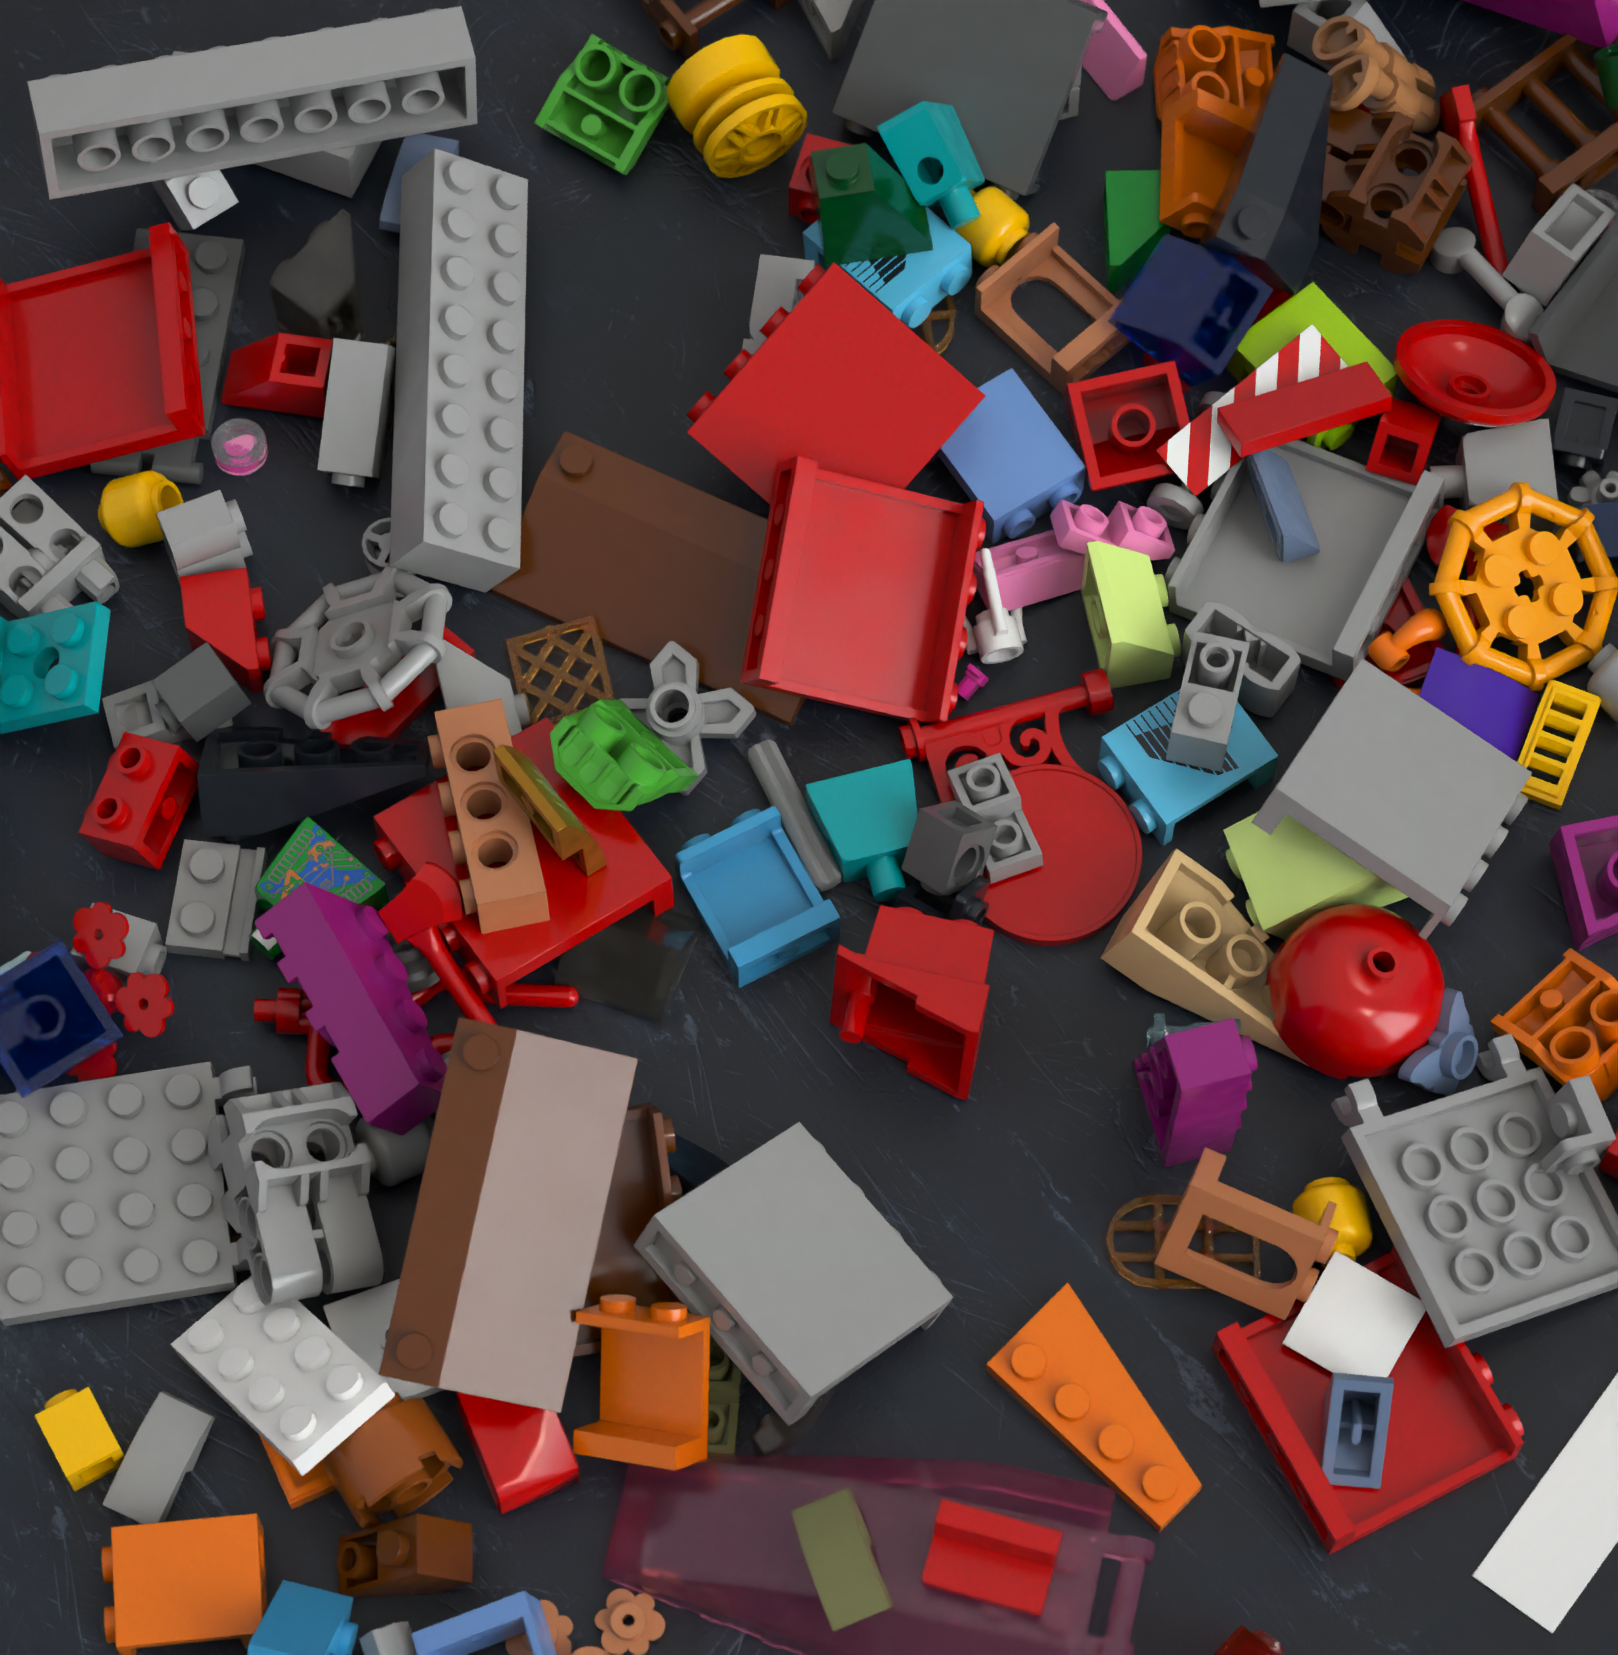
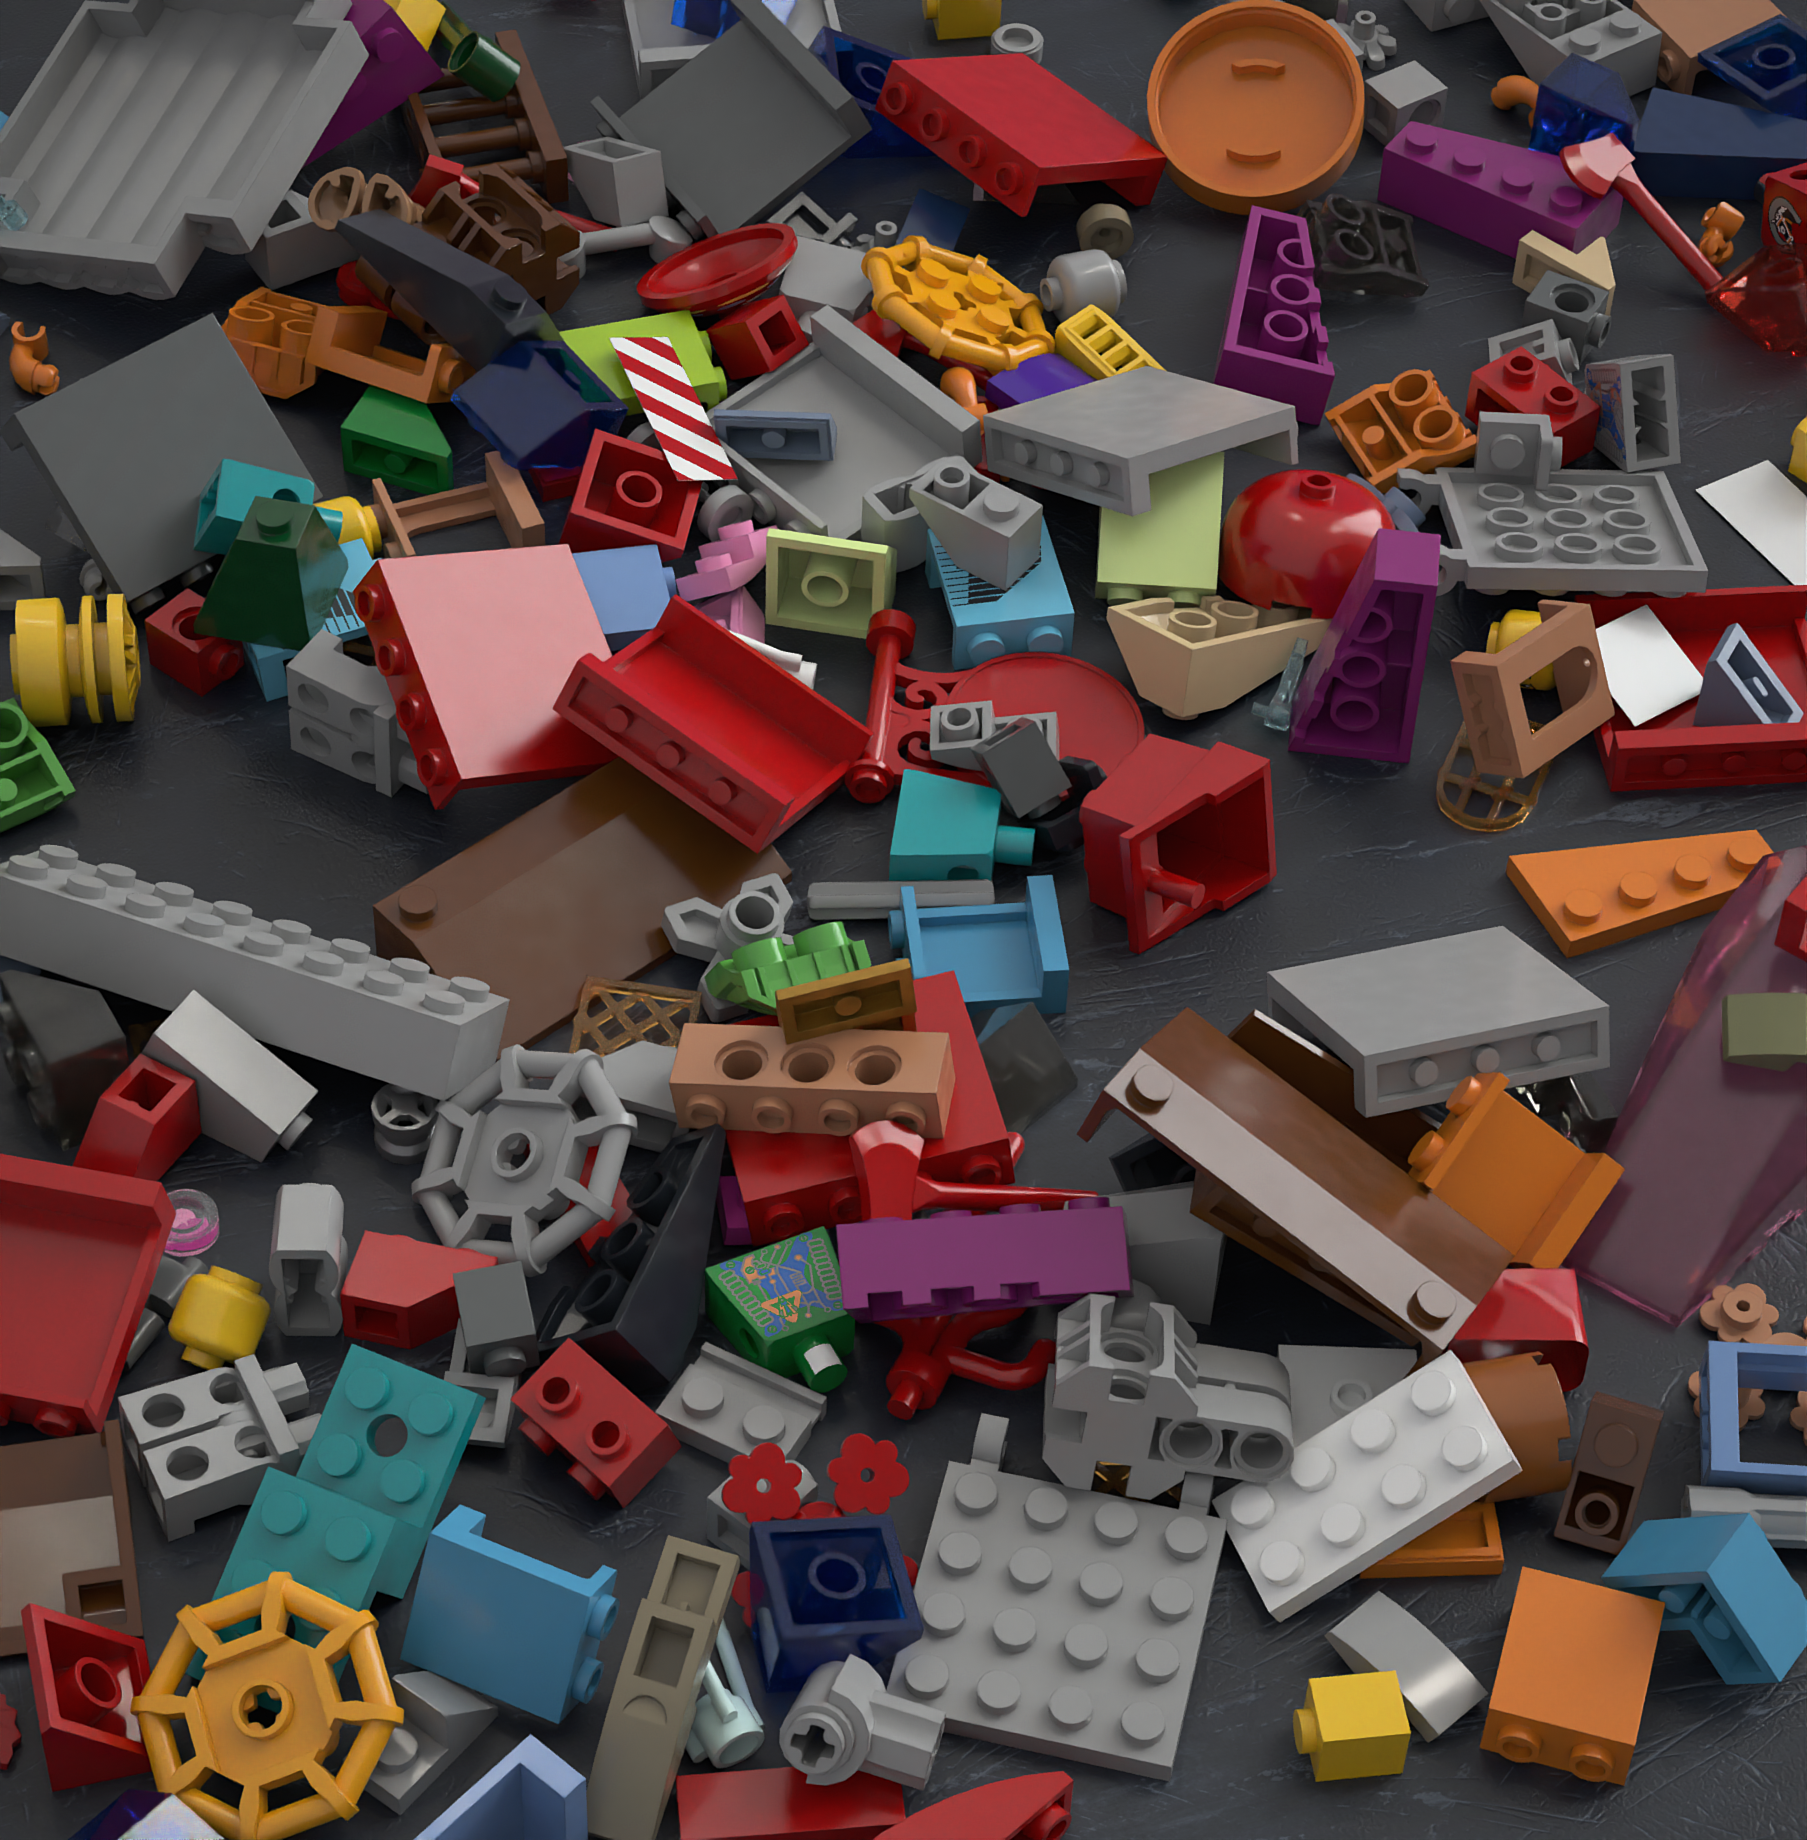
camera: 70 degrees left, 20 degrees down
(1304, 409) = (700, 366): red tile -> none

